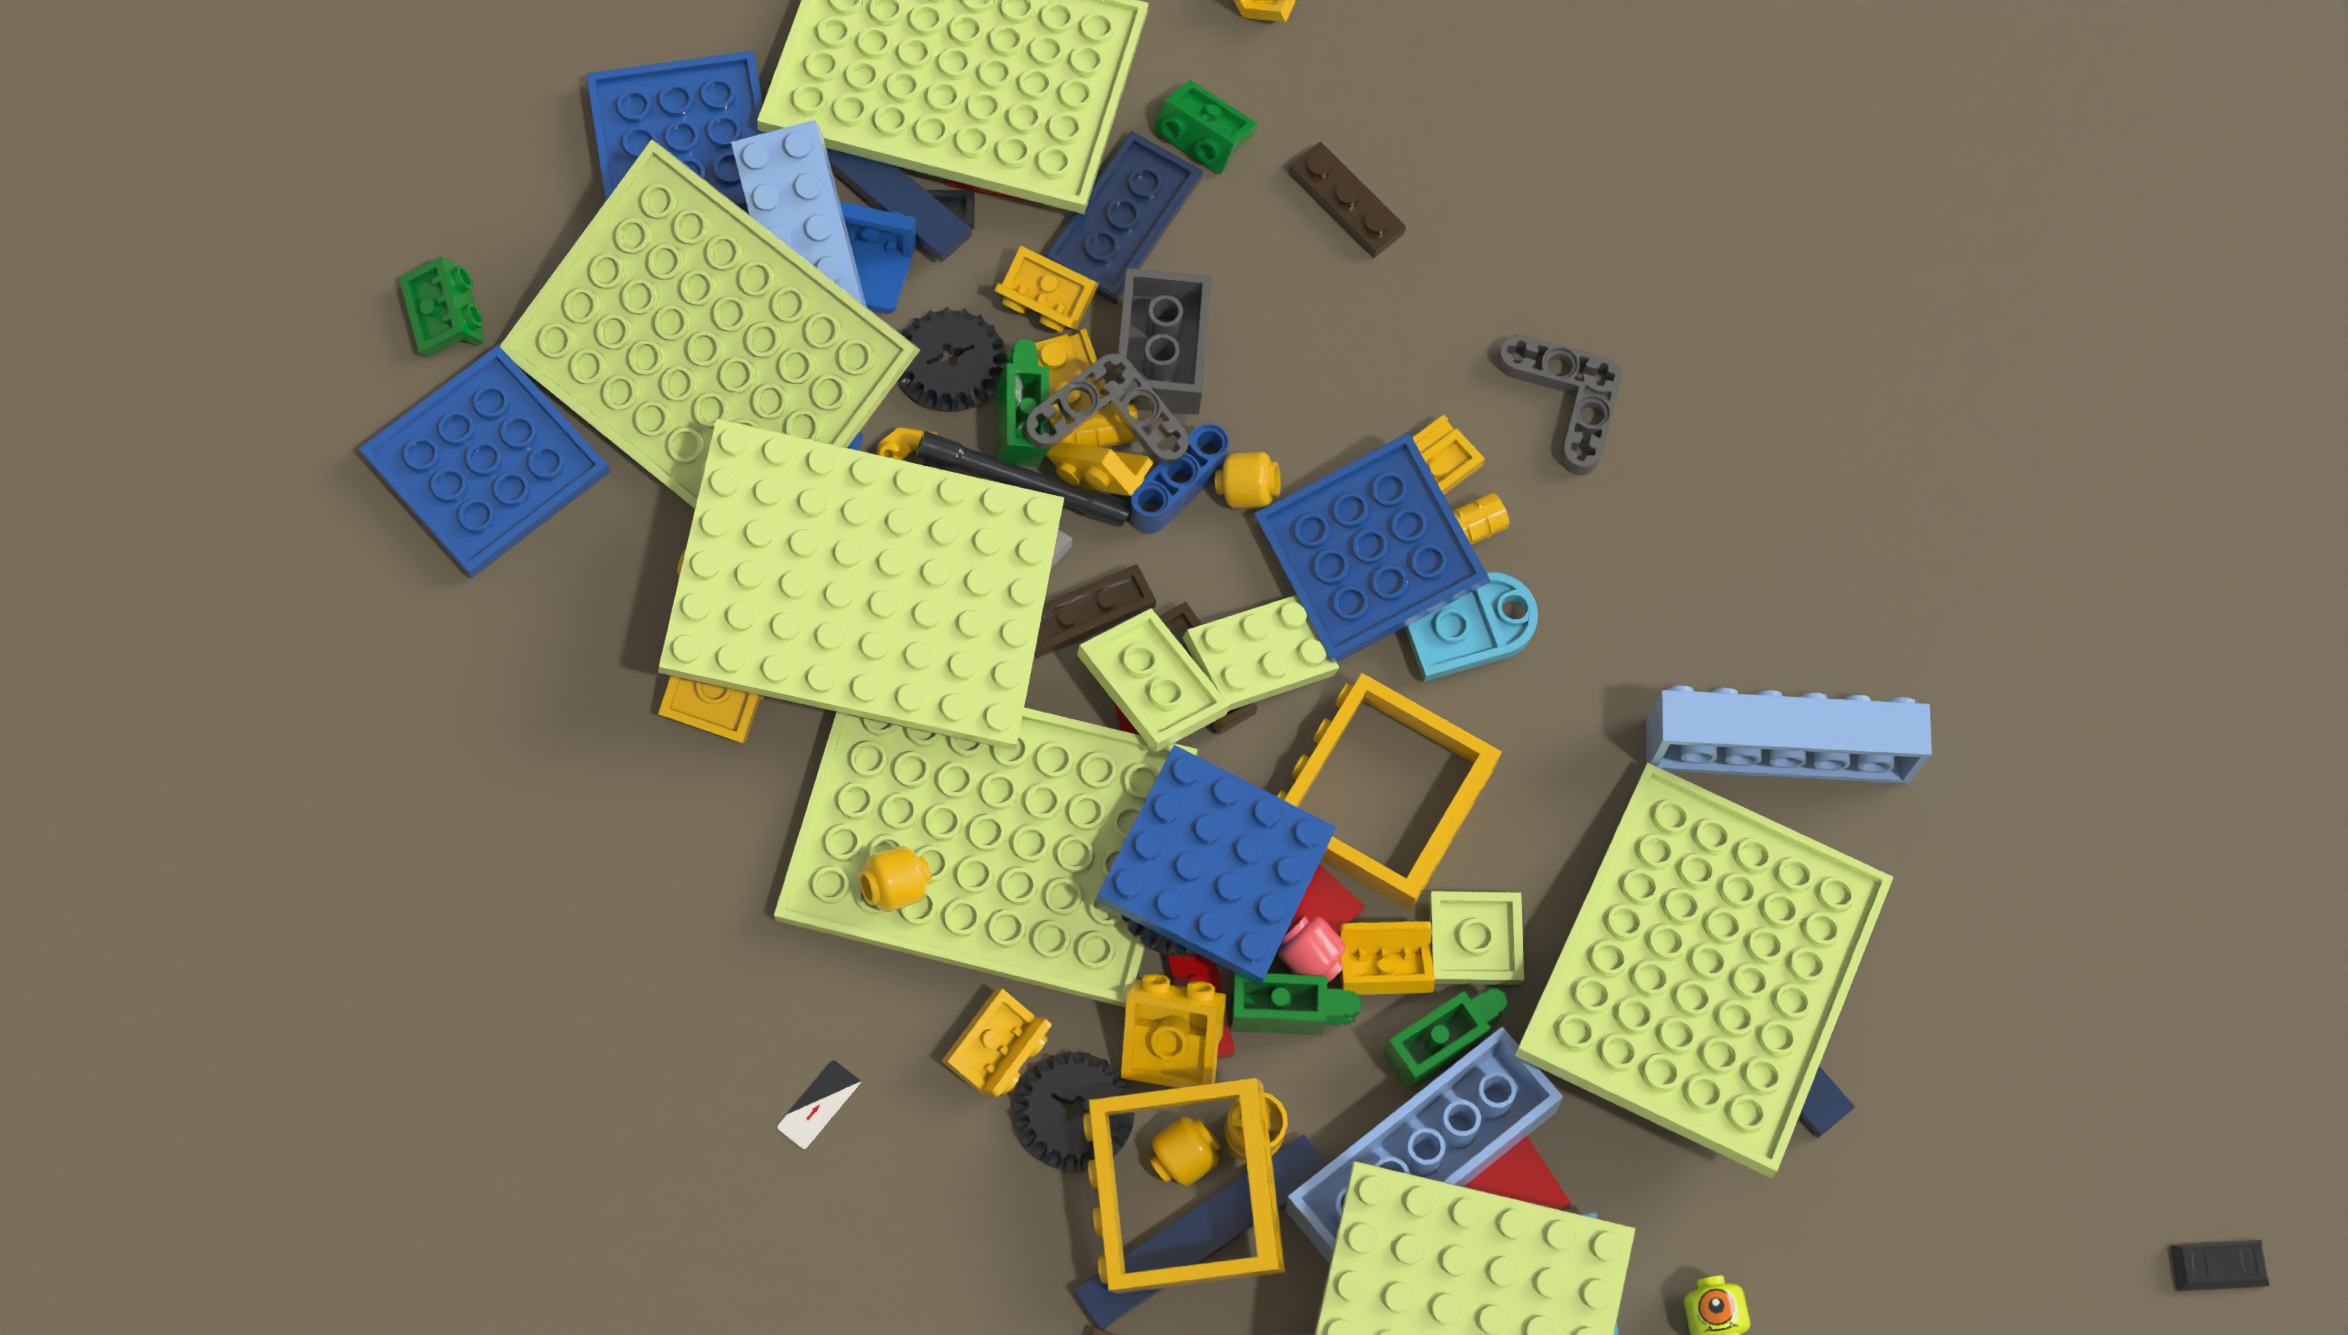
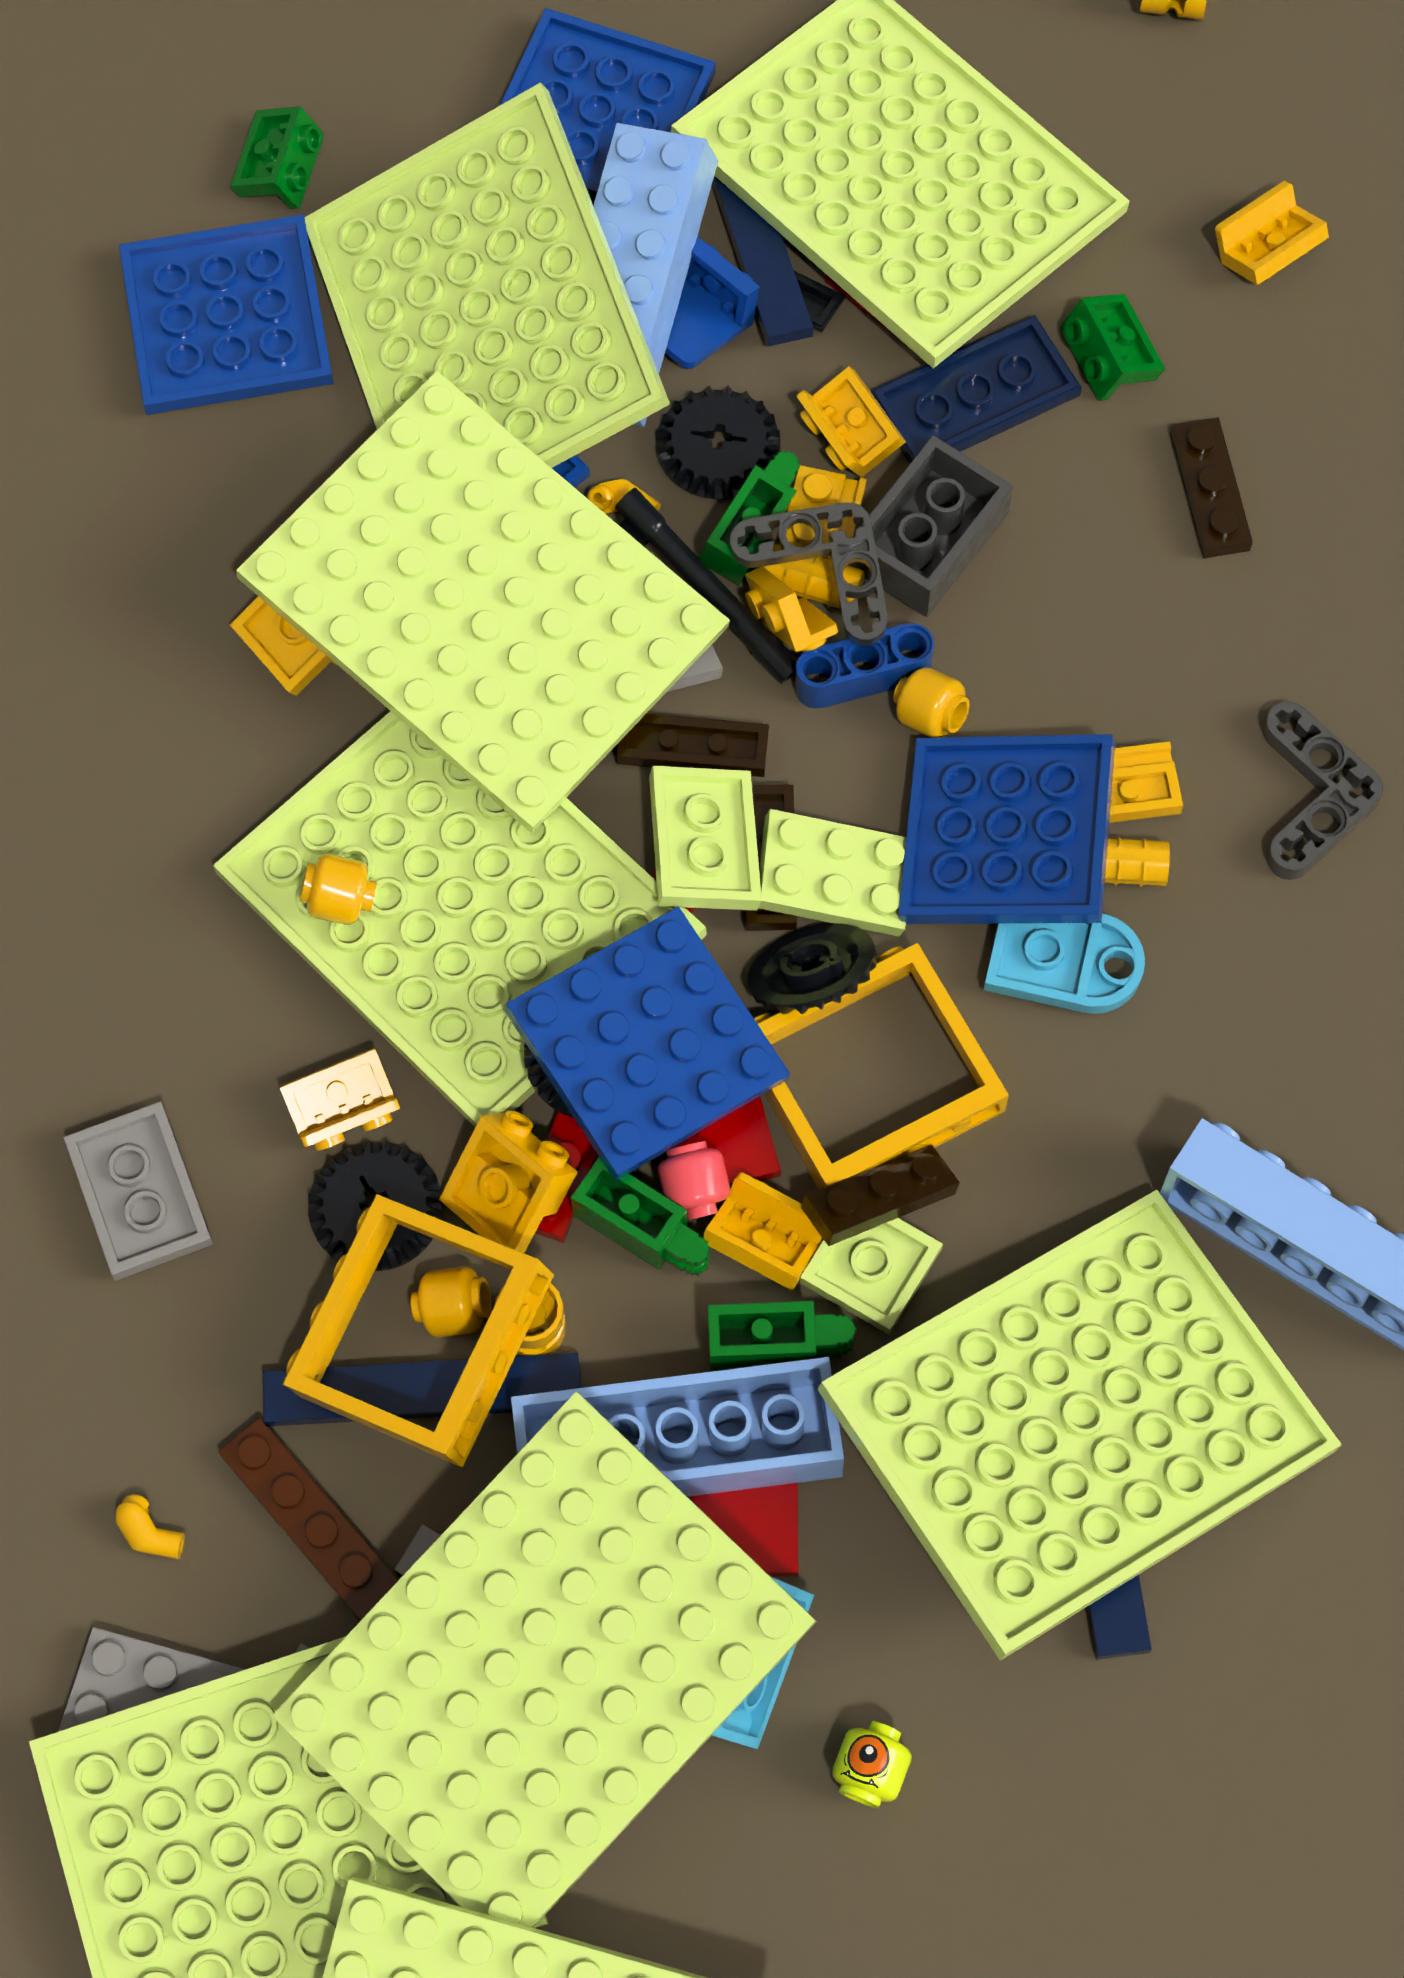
camera: 40 degrees right, 0 degrees up
(818, 1104) = (146, 1064): sticker -> none
(883, 1207) = (138, 1191): none -> light grey plate
(1267, 740) = (812, 967): none -> black gear
(1453, 882) = (880, 1195): none -> dark brown plate

